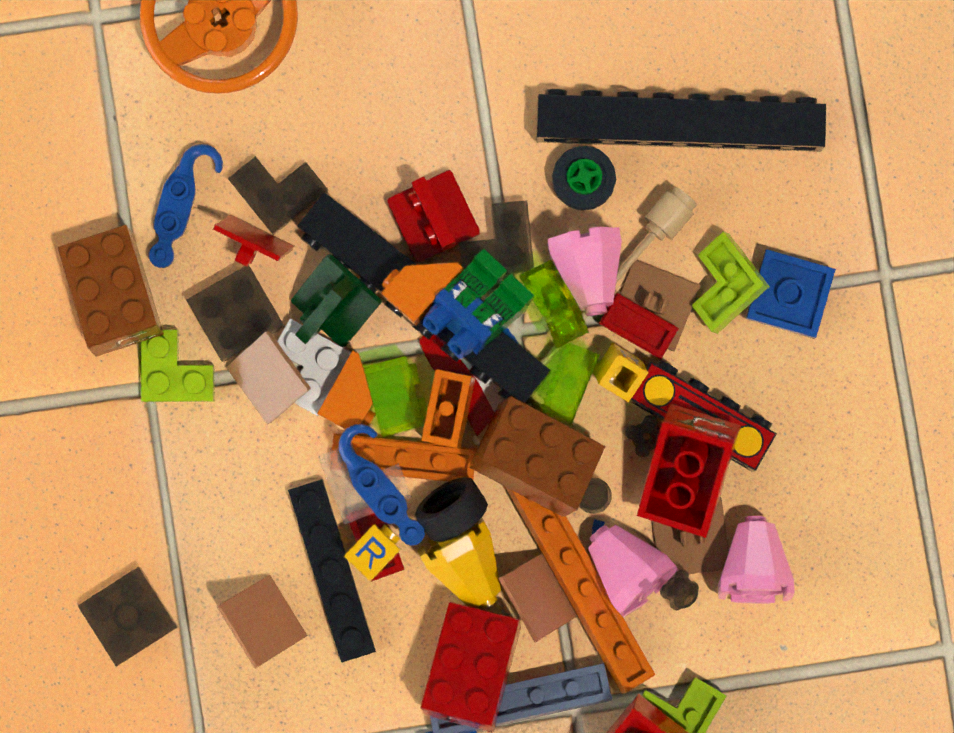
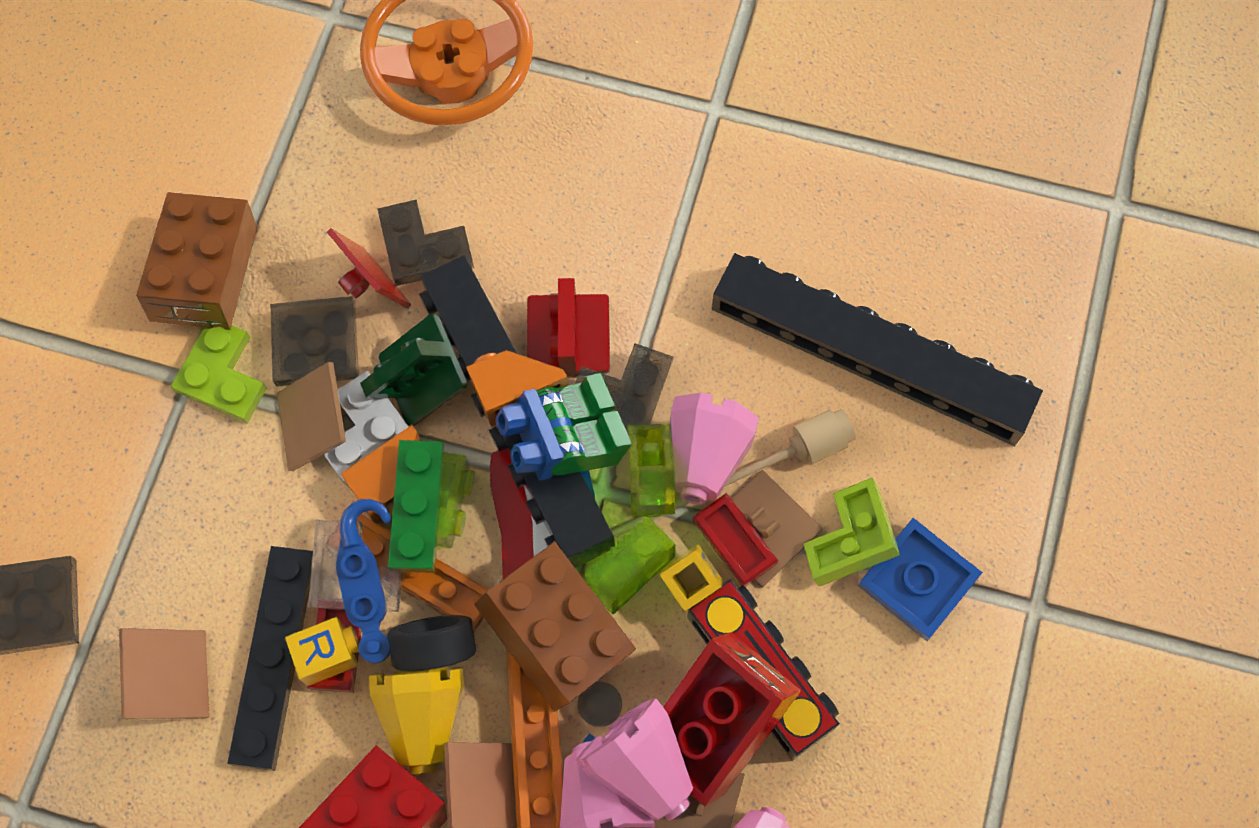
camera: 25 degrees right, 15 degrees down
(177, 204) = (314, 213): blue piece -> none
(389, 413) = (416, 506): none -> green plate
(448, 409) = (482, 531): orange brick -> none
(580, 166) = (749, 347): black wheel -> none
(636, 433) = (679, 656): clear smoke plate -> none
(647, 528) = (641, 762): none -> bright pink cone

